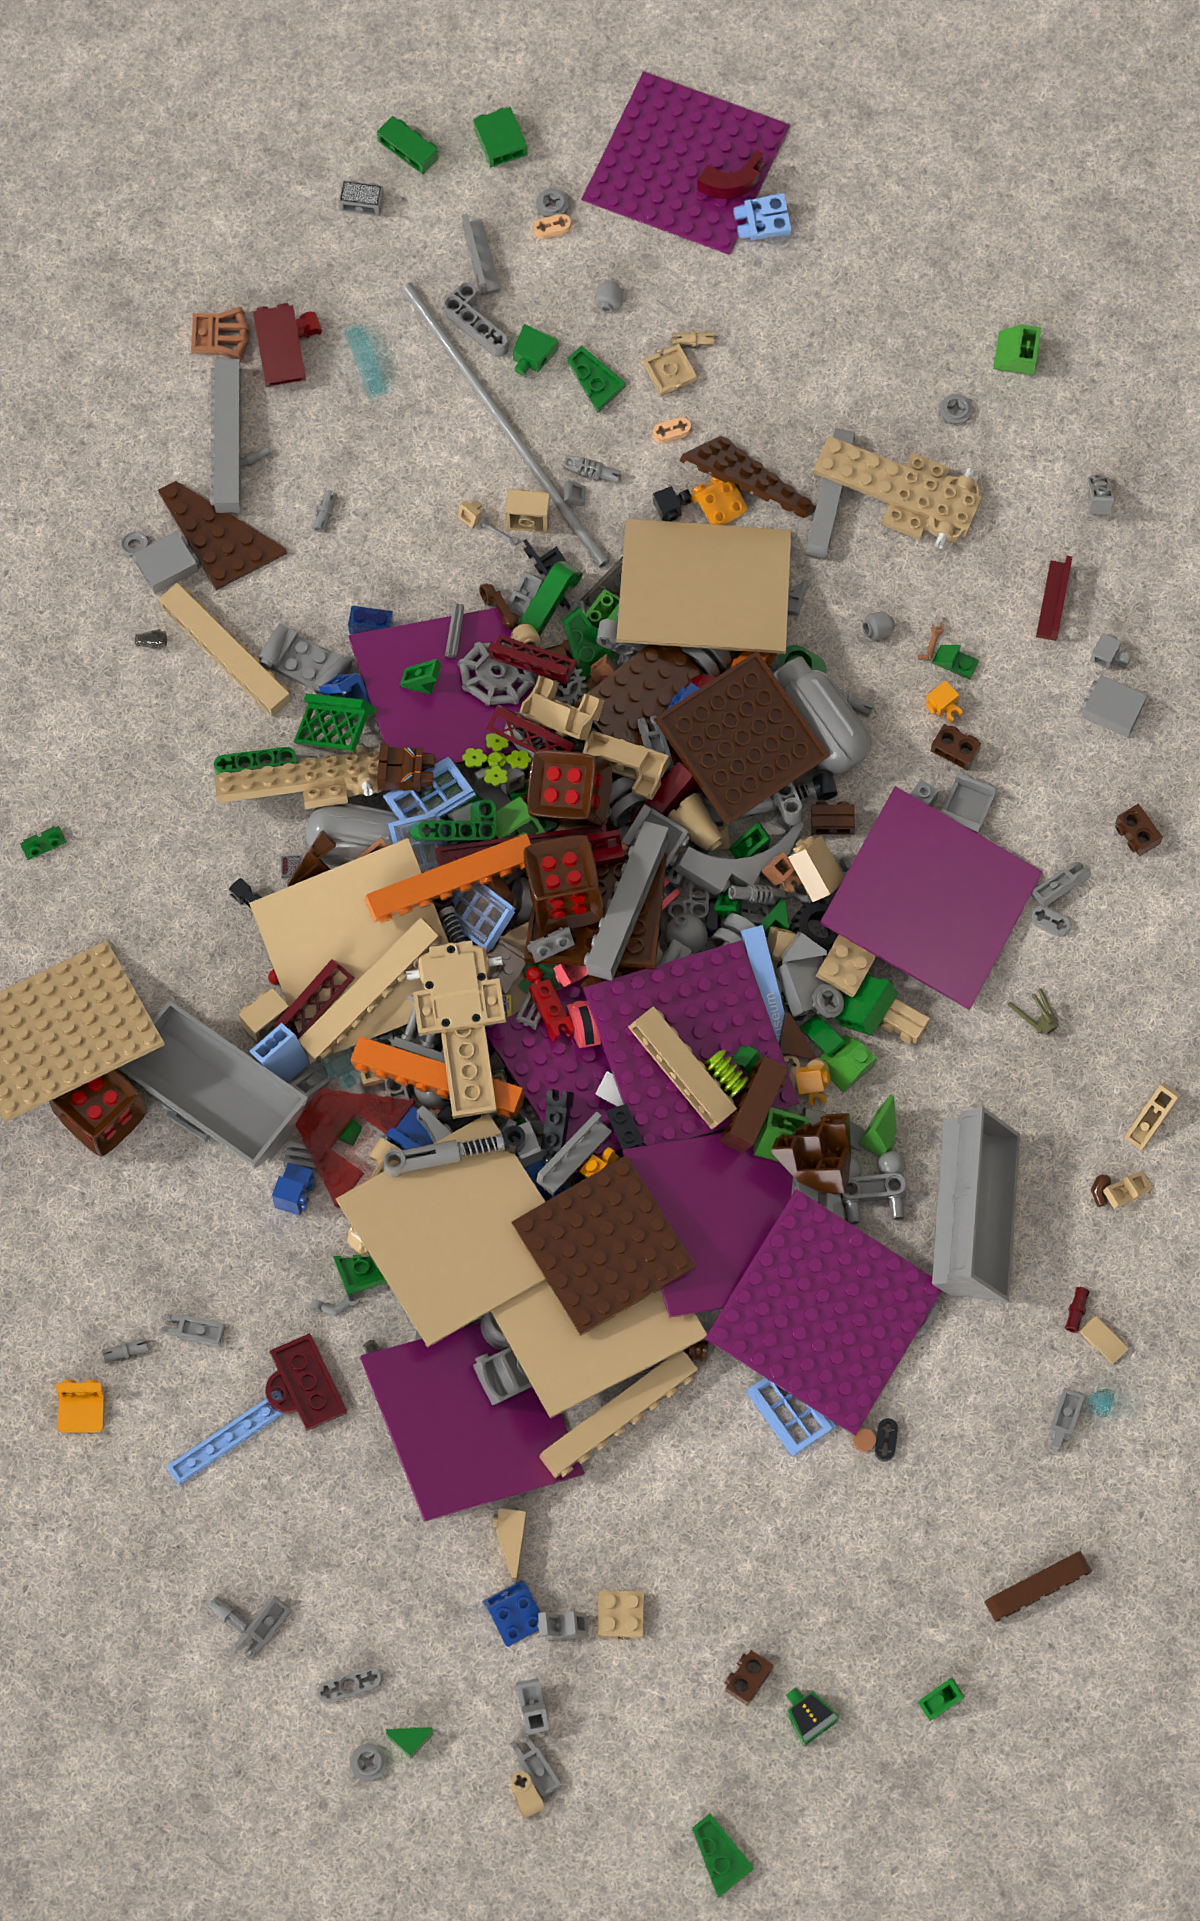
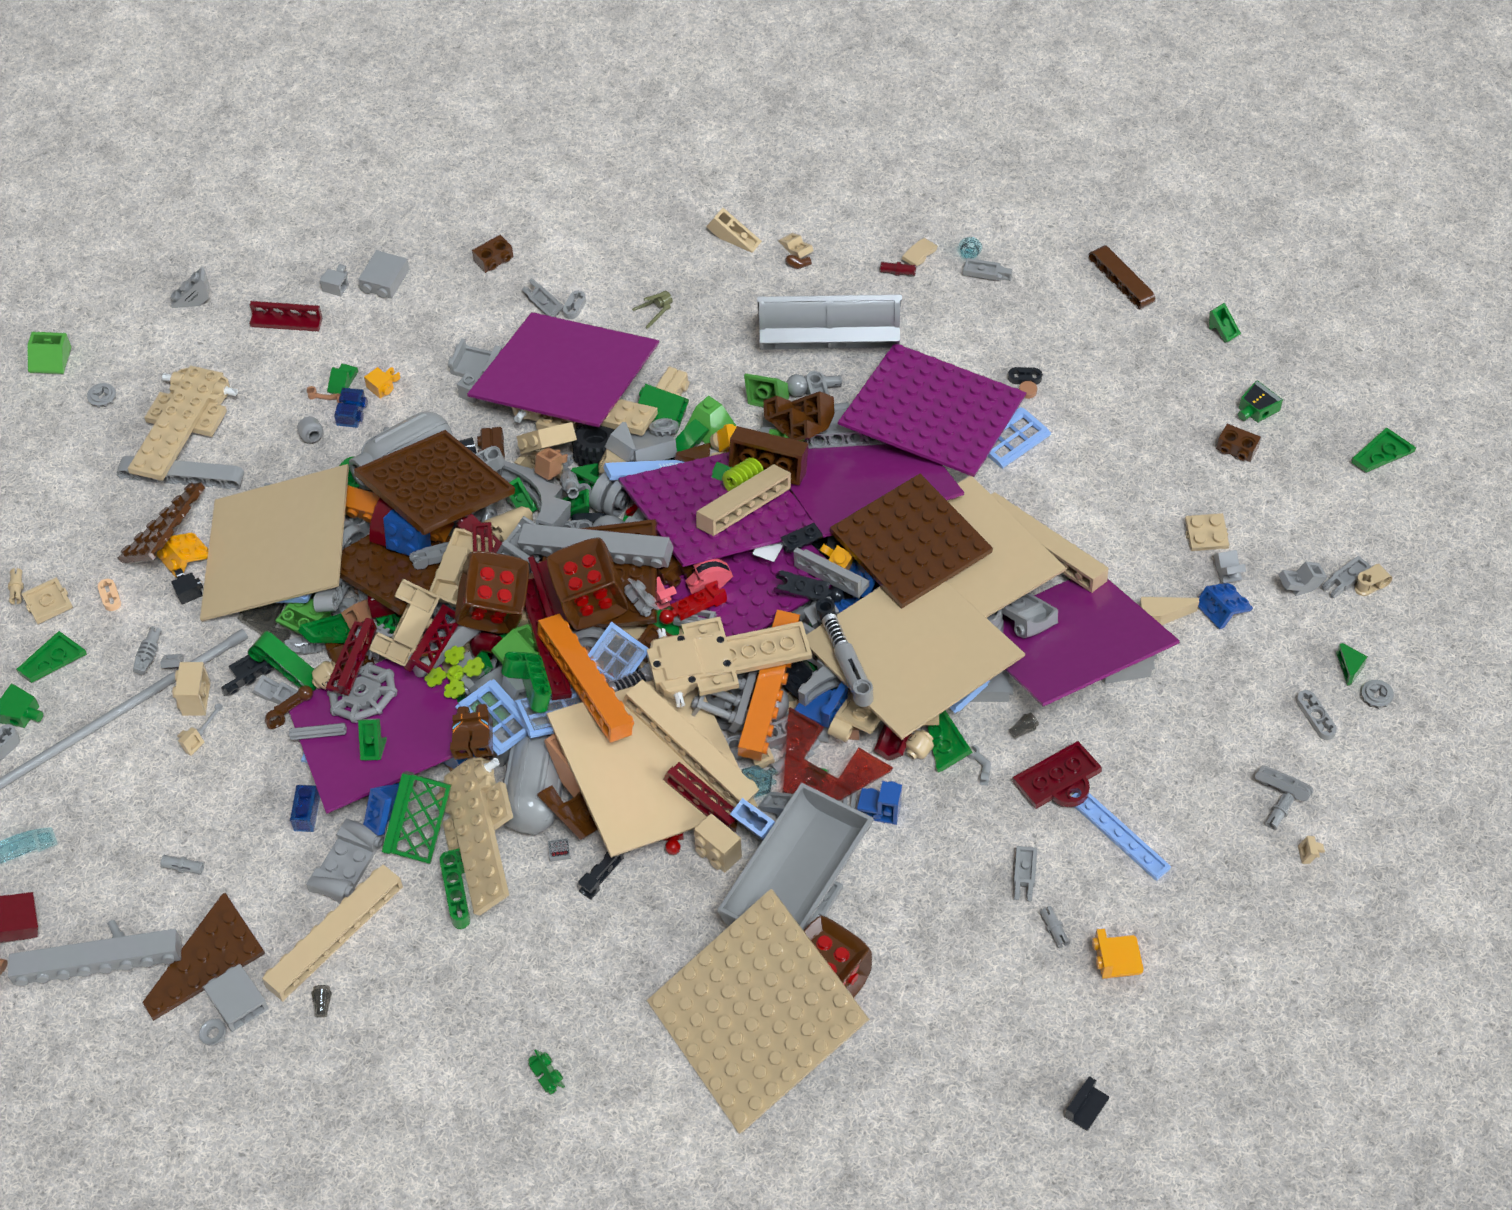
camera: 95 degrees left, 15 degrees down
(173, 1636) = (1310, 849): none -> tan tile
(650, 787) = (482, 531): none -> dark red tile
(917, 671) = (350, 411): none -> clear blue piece
(952, 751) = (423, 371): reddish brown brick -> none

